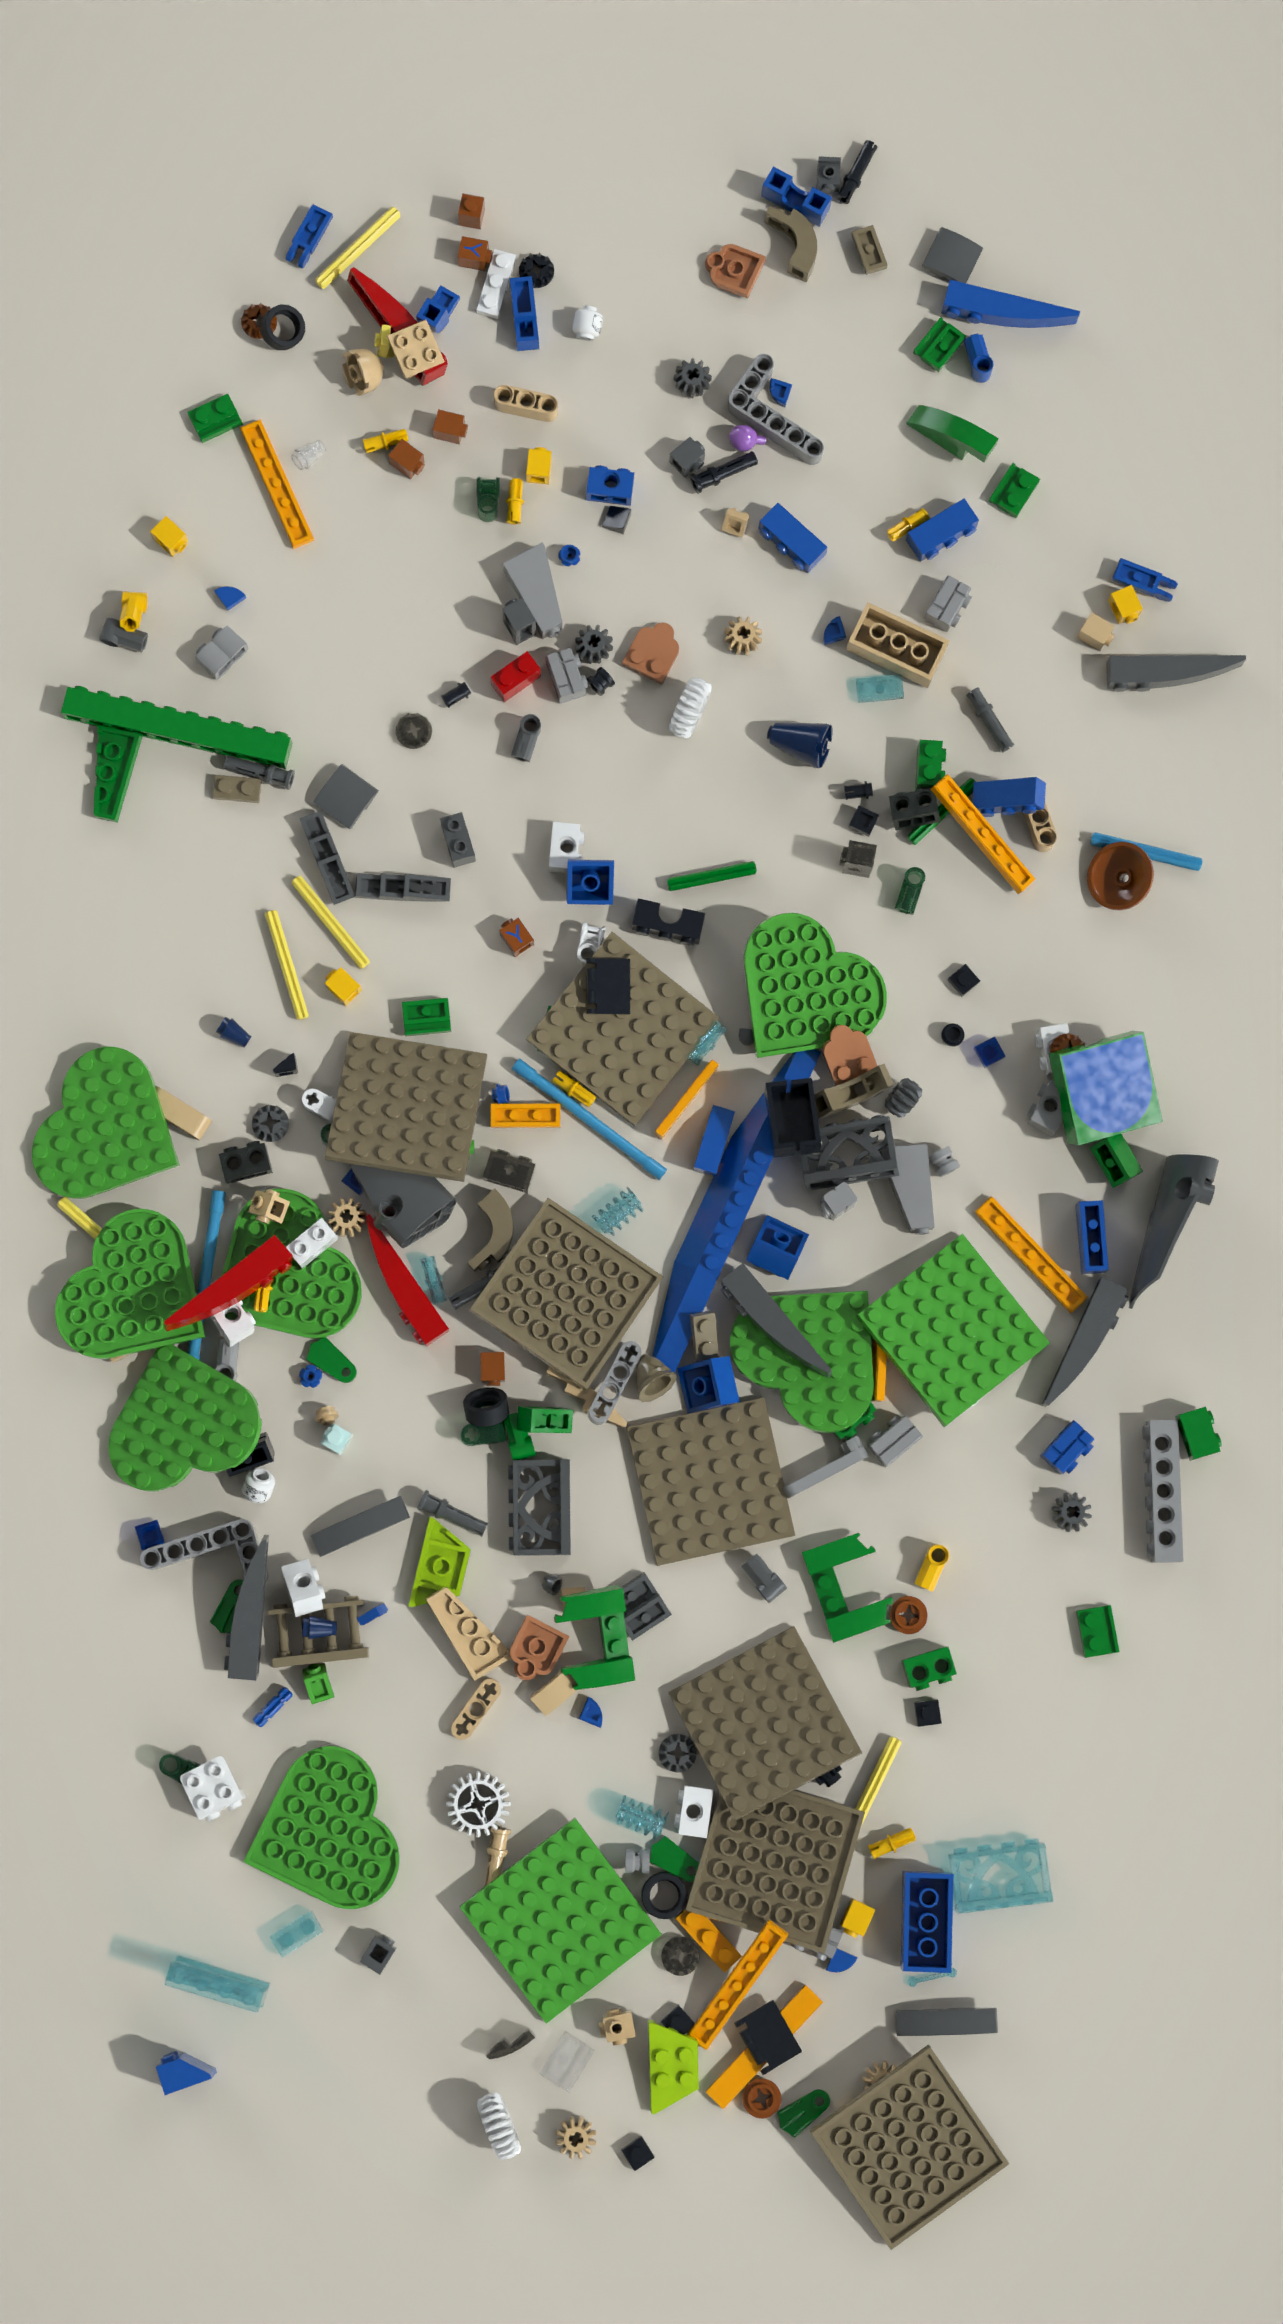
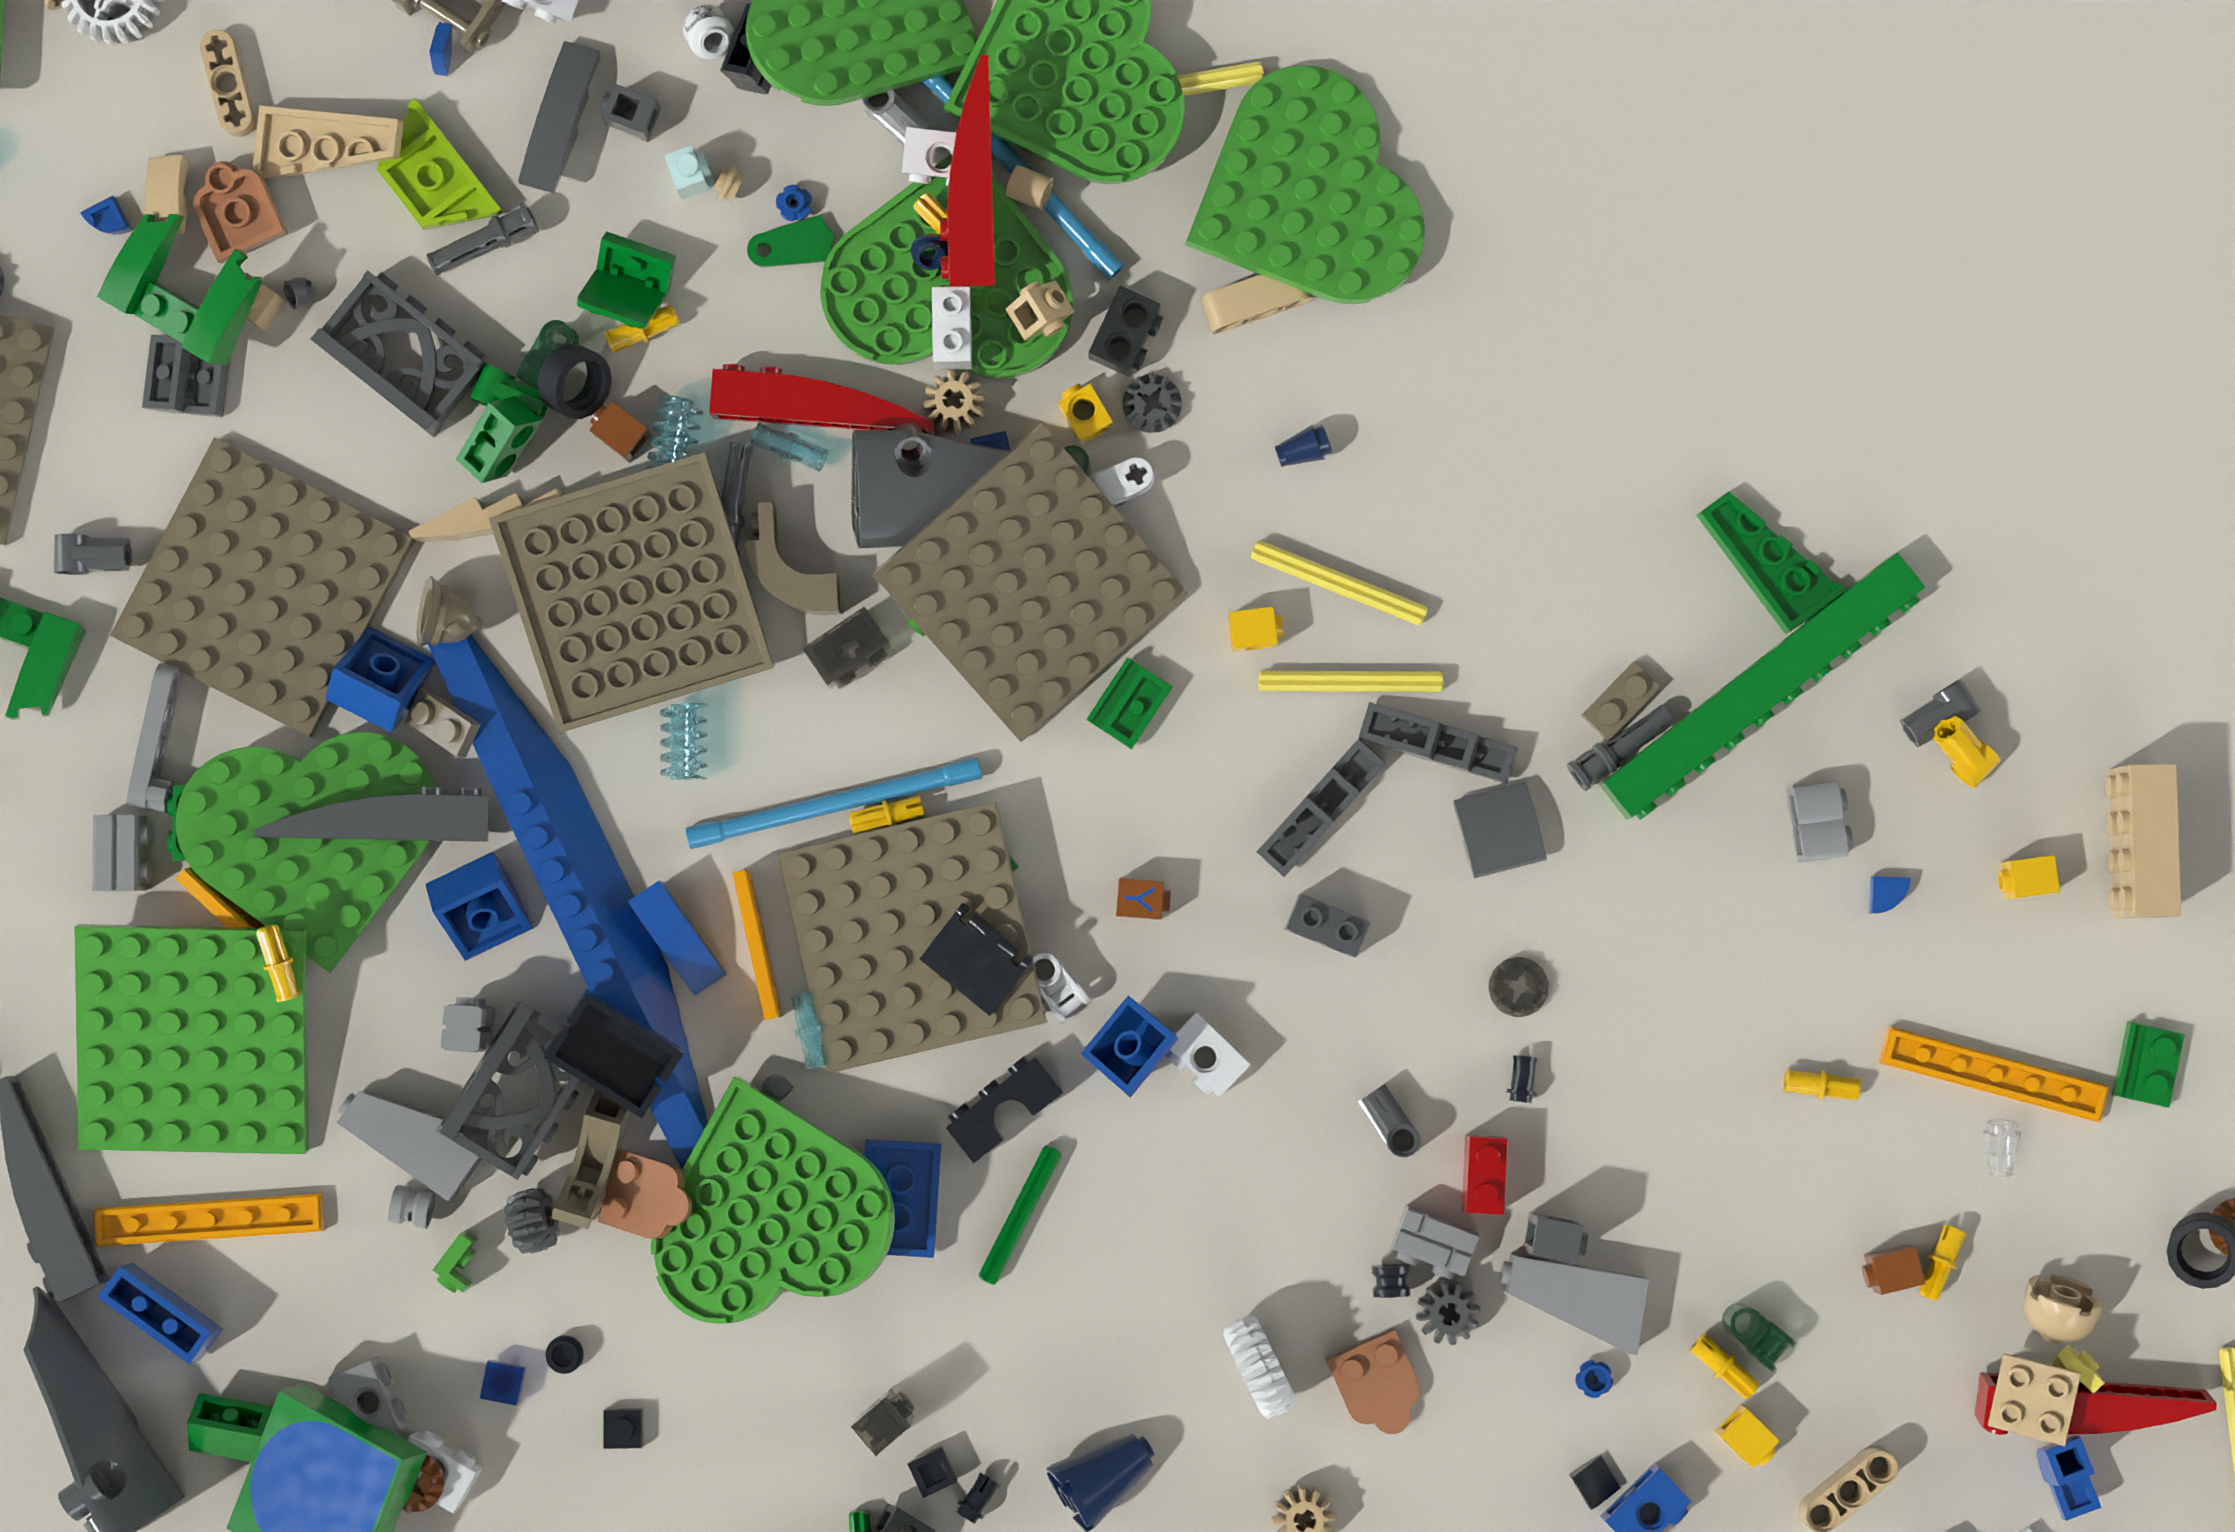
camera: 135 degrees right, 5 degrees up
(110, 495) = (2144, 841): none -> tan brick
(211, 1263) = (1029, 187): none -> tan beam
(282, 1285) = (928, 259): none -> dark blue plate
(286, 1067) = (1204, 479): black slope -> none
(301, 1139) = (1084, 429): none -> yellow brick
(329, 1484) = (622, 99): none -> dark grey brick
(346, 557) = (1821, 1085): none -> yellow axle
(416, 1422) = (628, 281): none -> green bracket
(433, 1400) = (625, 336): none -> yellow axle
(449, 427) = (1893, 1362): dark orange brick -> none
(472, 1339) = (674, 430): none -> clear light blue piece
(501, 1094) = (954, 717): blue plate -> none
(525, 1115) = (902, 726): light orange plate -> none
(614, 1382) = (477, 559): light grey beam -> none
(732, 938) = (913, 1180): none -> blue plate
(882, 1310) = (278, 963): none -> yellow axle
(910, 892) = (788, 1451): clear green piece -> none
(948, 1121) = (457, 1255): none -> bright green bracket

